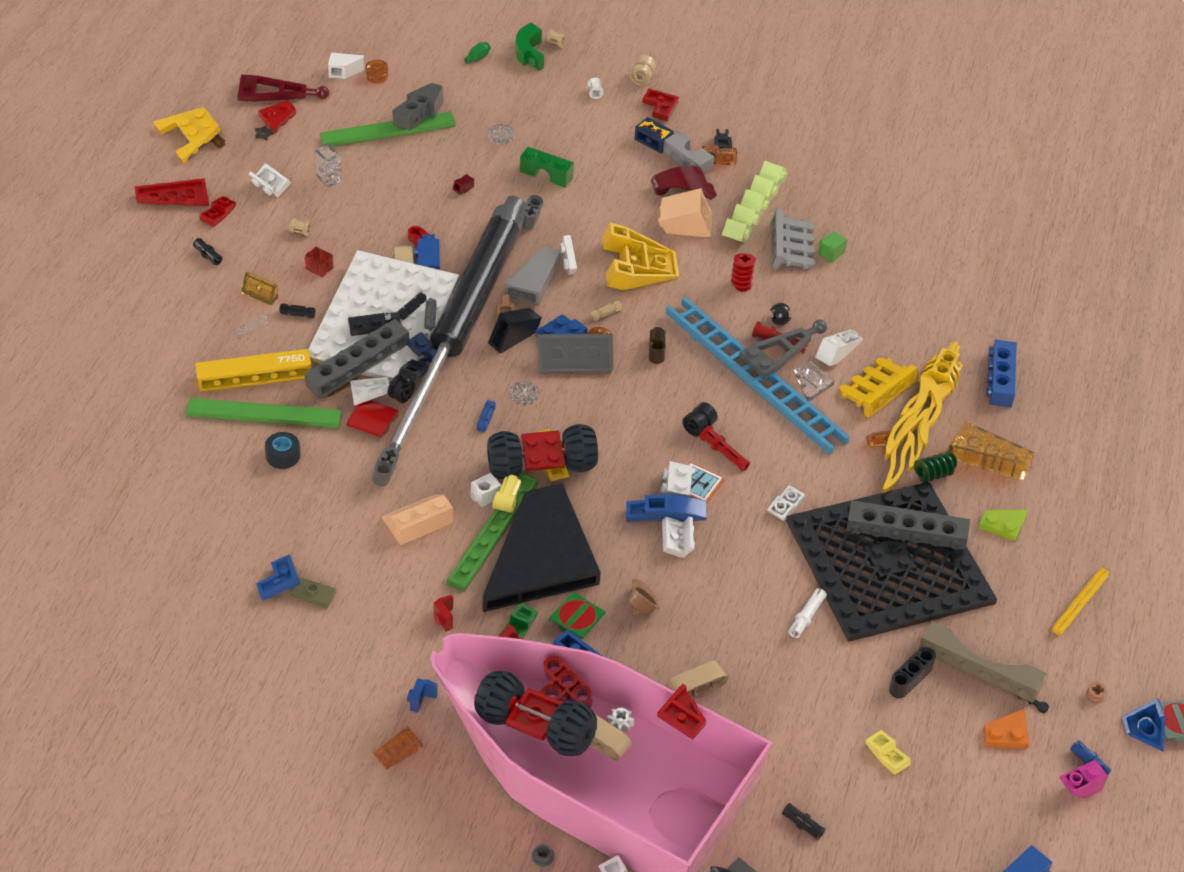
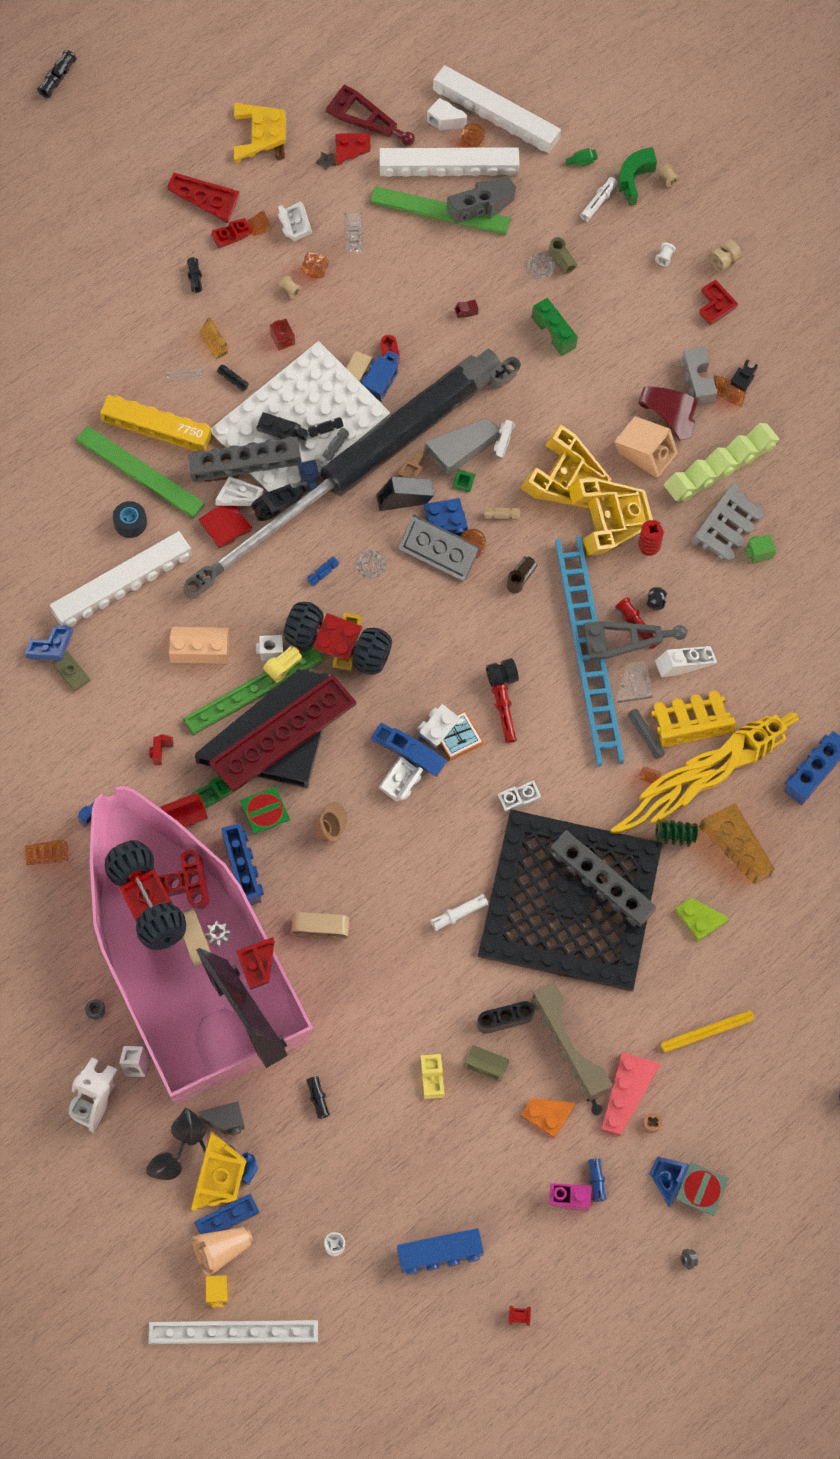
camera: 30 degrees right, 20 degrees up
(239, 194) = (259, 223): none -> clear orange slope
(309, 500) = (121, 580): none -> white brick
(311, 202) = (315, 264): none -> clear orange wheel
(369, 93) = (448, 161): none -> white brick
(383, 45) = (496, 109): none -> white brick
(509, 117) = (561, 255): none -> olive piece
(511, 84) = (599, 198): none -> white pin
(550, 544) = (282, 733): none -> dark red plate
(555, 301) = (464, 480): none -> green slope
(652, 134) = (682, 335): dark blue brick -> none
(656, 745) = (227, 982): none -> black slope
(697, 267) = (615, 510): none -> yellow wedge
(850, 411) = (646, 733): none -> dark grey axle
(925, 719) = (486, 1063): none -> olive panel
(1058, 681) = (629, 1086): none -> coral wing

